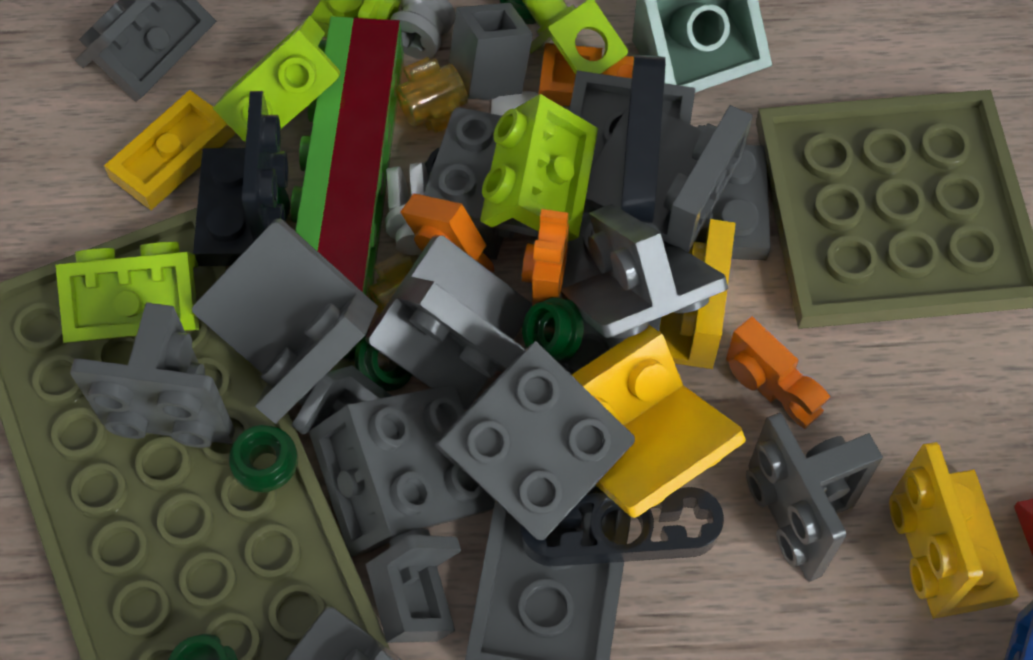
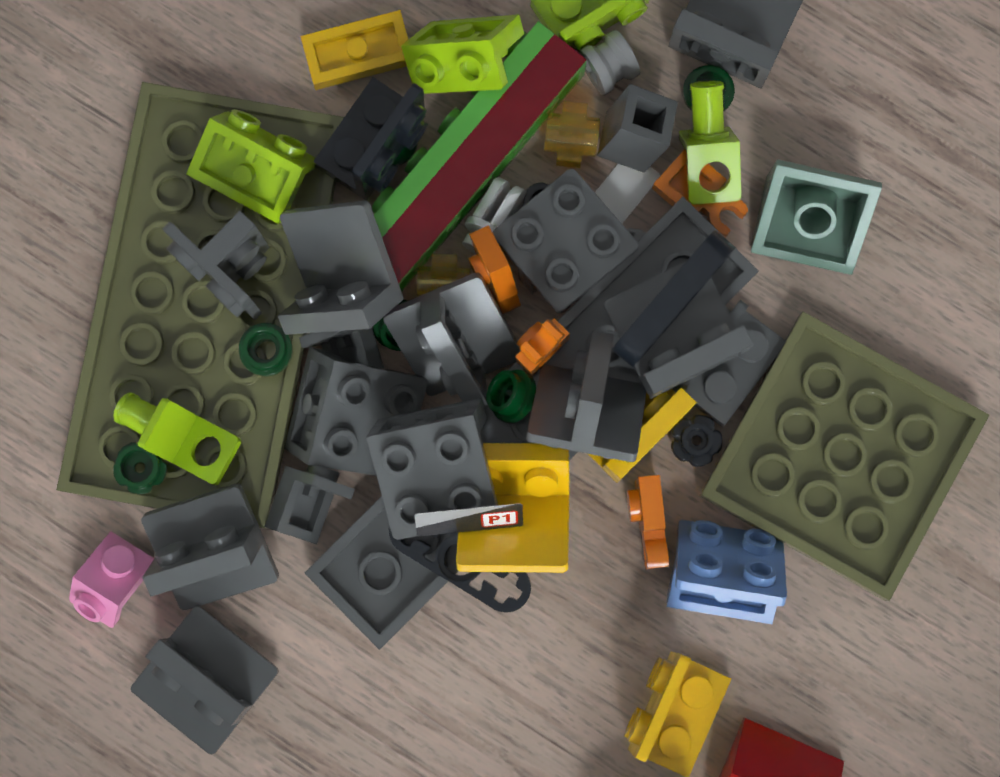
camera: 35 degrees right, 20 degrees up
(221, 603) = (175, 433): none -> lime bracket
(539, 164) = (585, 271): lime bracket -> none
(606, 457) = (469, 519): none -> sticker
(750, 294) = (696, 454): none -> black plate
(809, 490) = (613, 621): dark grey bracket -> none
(889, 372) = (727, 572): none -> medium blue bracket

